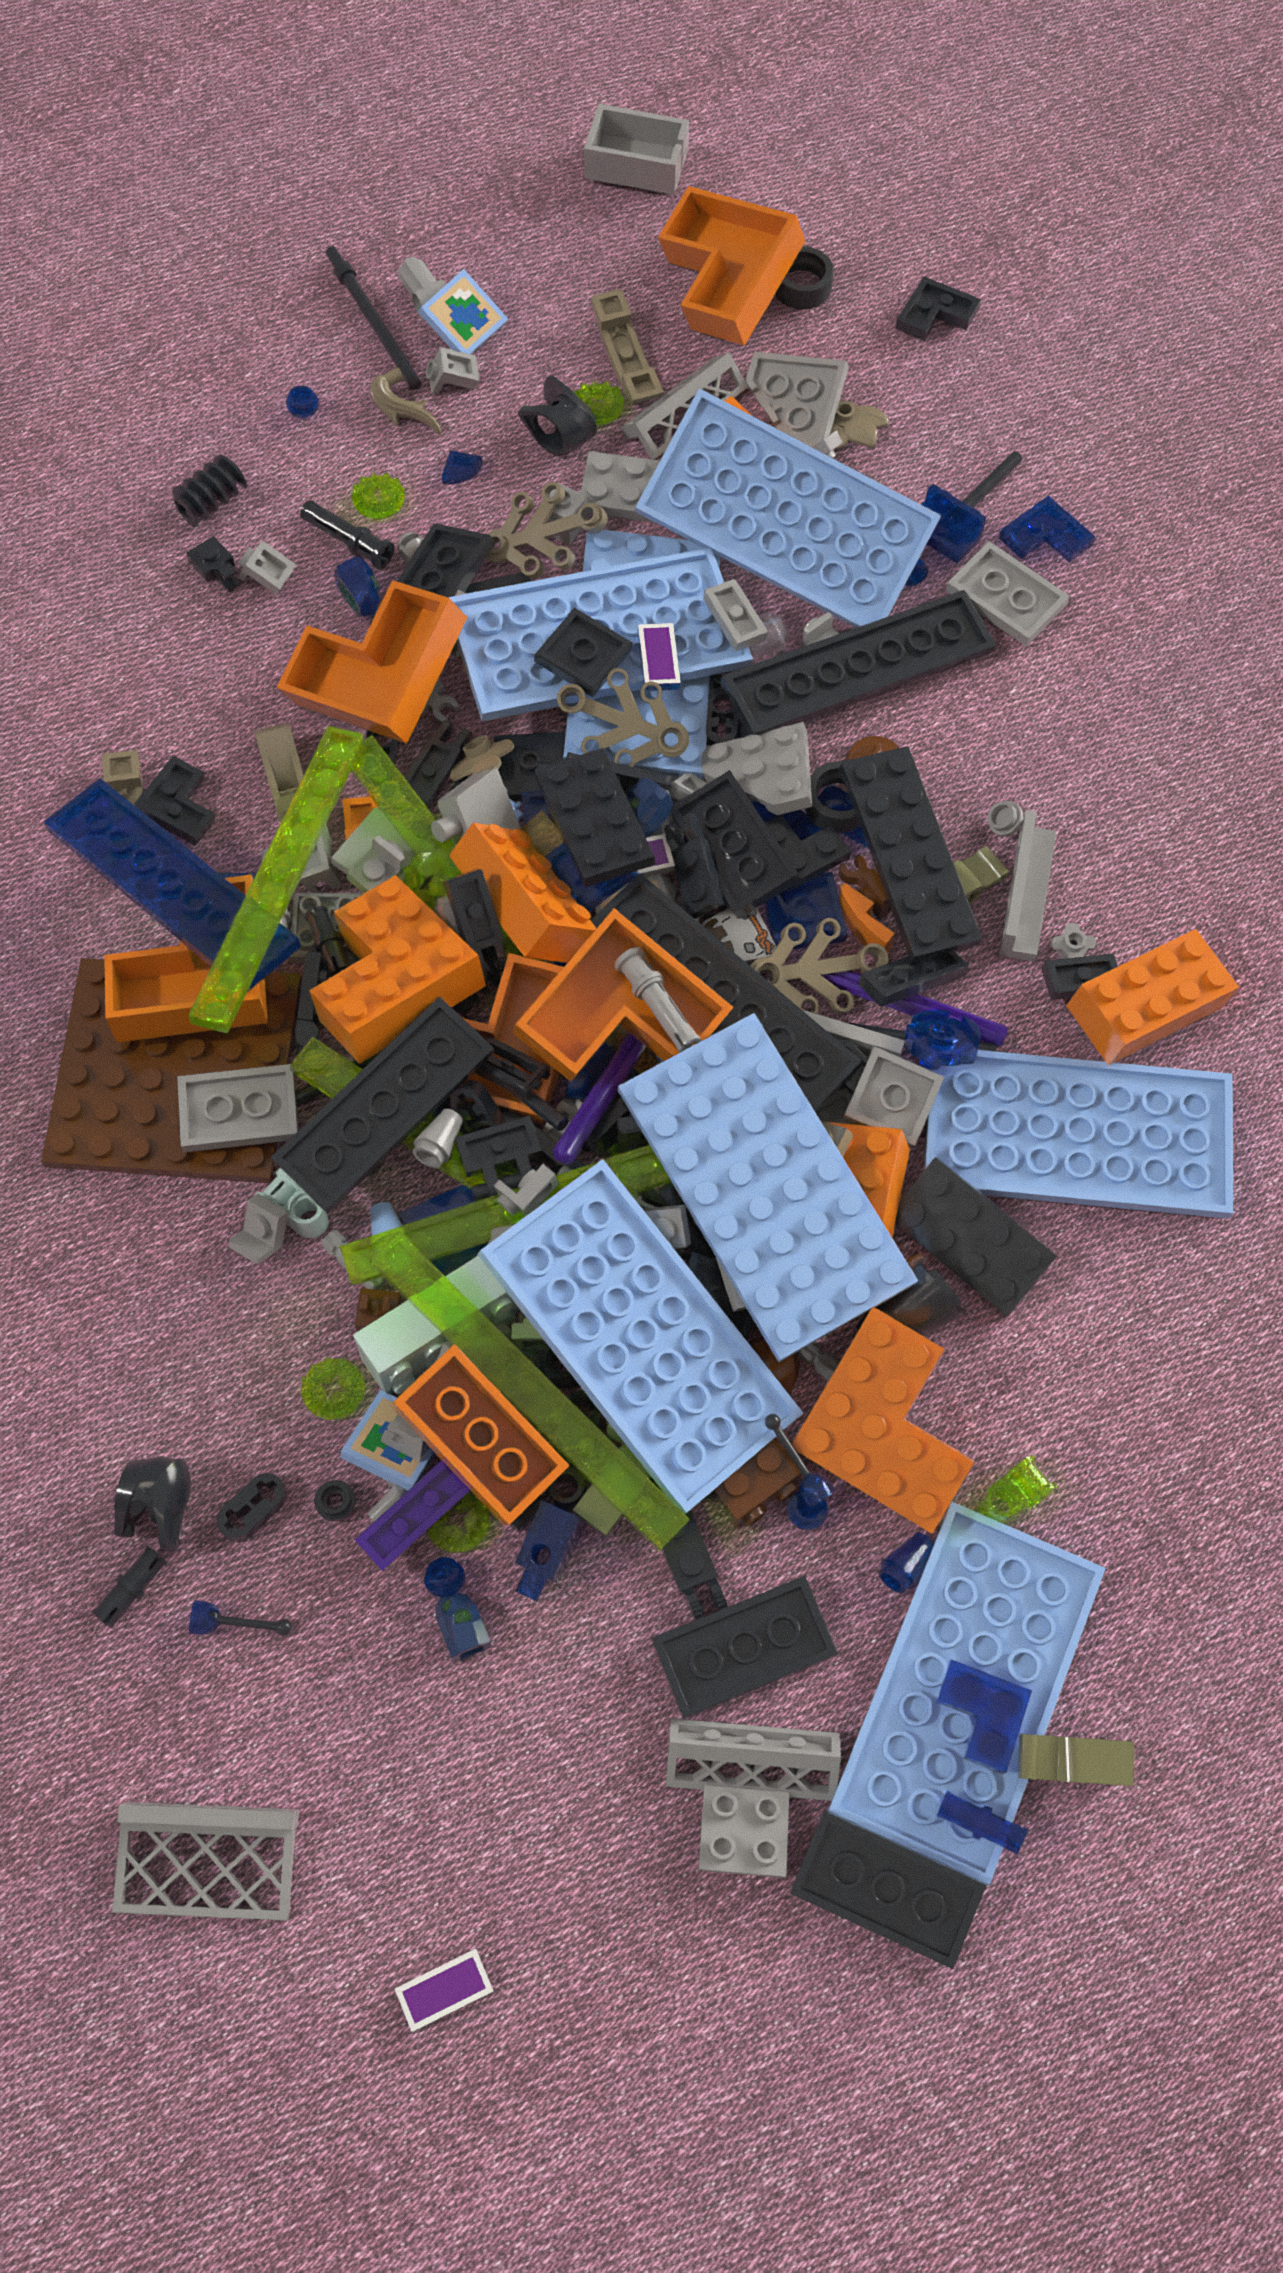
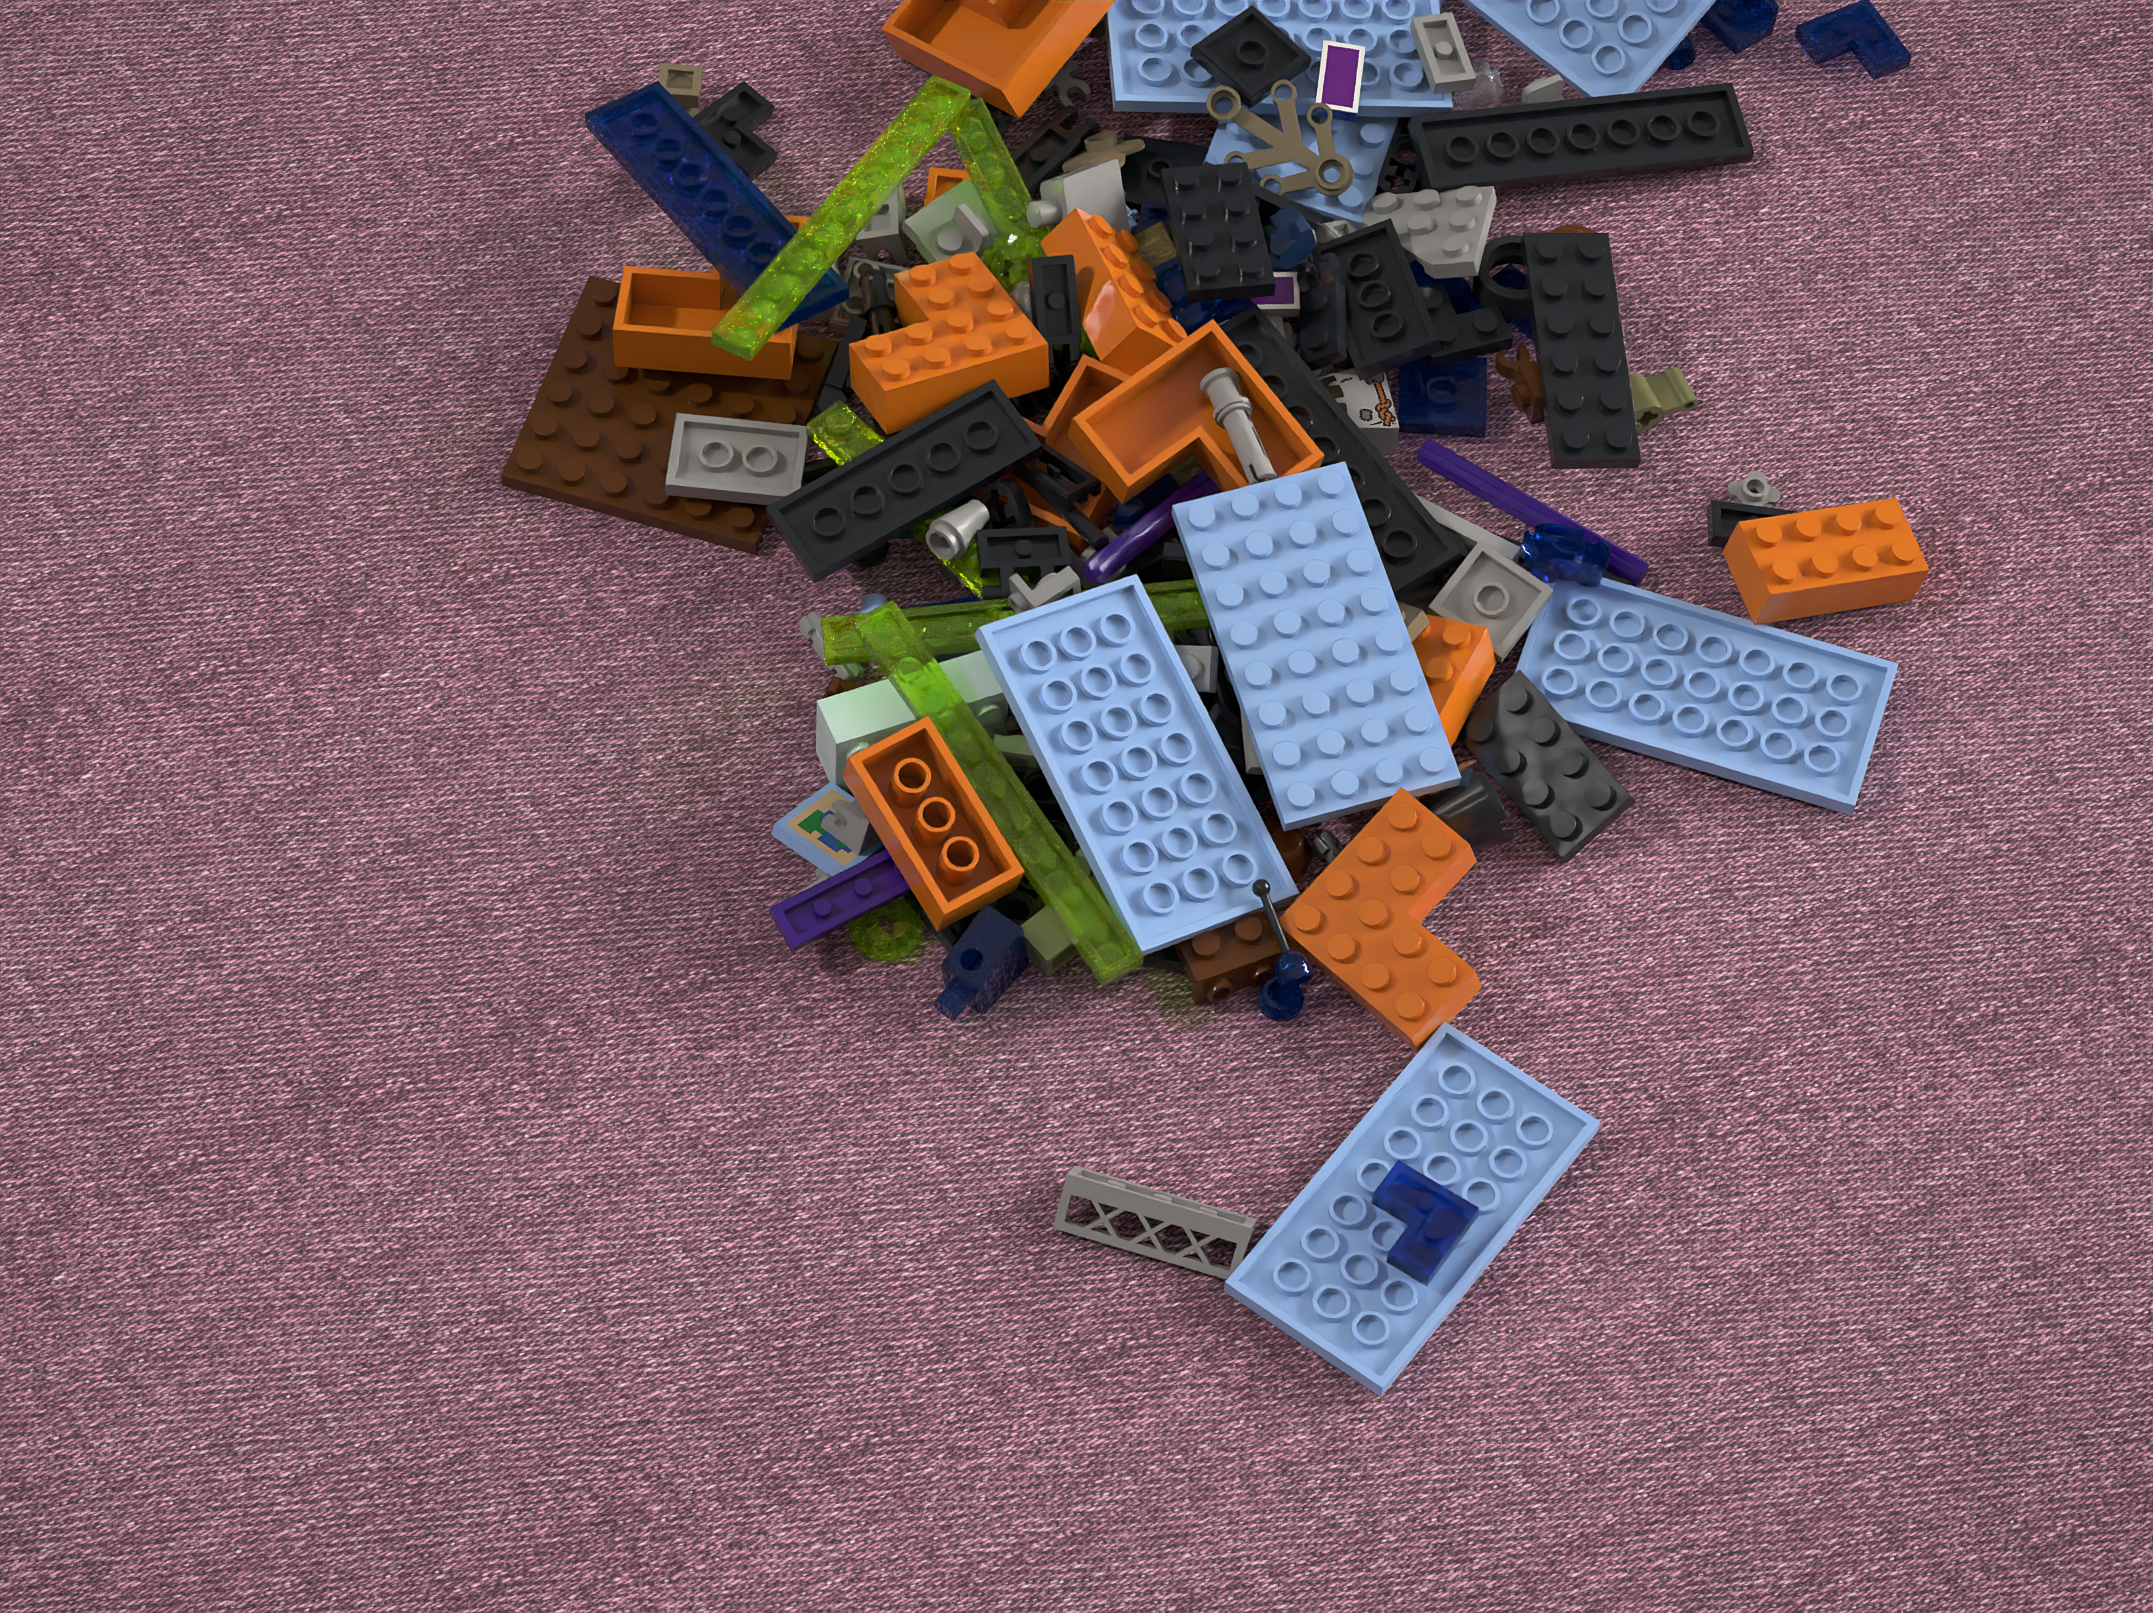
camera: 10 degrees right, 10 degrees down
(129, 1587) = (510, 913): black pin -> none
(160, 1485) = (566, 817): black helmet -> none
(204, 1820) = (547, 1144): light grey fence -> none
(206, 1618) = (589, 960): hinge -> none
(245, 1500) = (661, 866): black beam -> none
(262, 1230) = (736, 591): light grey bracket -> none
(280, 764) = (865, 110): dark tan arch -> none
(292, 1198) = (776, 577): light aqua piece -> none
(331, 1489) = (754, 868): black plate -> none
(340, 1403) = (783, 785): clear neon green gear -> none
(444, 1577) = (858, 976): clear blue plate -> none
(444, 1990) = (765, 1361): dark purple tile -> none
(461, 1626) = (866, 1030): dark blue rock -> none
(693, 1567) = (1135, 1021): black hinge -> none
(744, 1647) = (1173, 1113): black plate -> none
(744, 1831) = (1126, 1284): light grey hinge -> none
(810, 968) = (1432, 454): dark tan plant -> none
(857, 915) = (1505, 411): orange slope -> none
(888, 1888) = (1270, 1367): black plate -> none
(905, 1564) = (1374, 1073): clear blue cone -> none
(907, 978) = (1541, 485): black plate -> none
(982, 1822) = (1389, 1321): clear blue pin -> none
(1005, 818) = (1710, 342): light grey plate -> none
(1009, 593) = (1787, 99): light grey plate -> none
(1021, 1489) = (1526, 1025): clear neon green piece -> none
(1027, 890) = (1714, 425): light grey fence -> none
(1076, 1759) = (1512, 1291): olive piece -> none

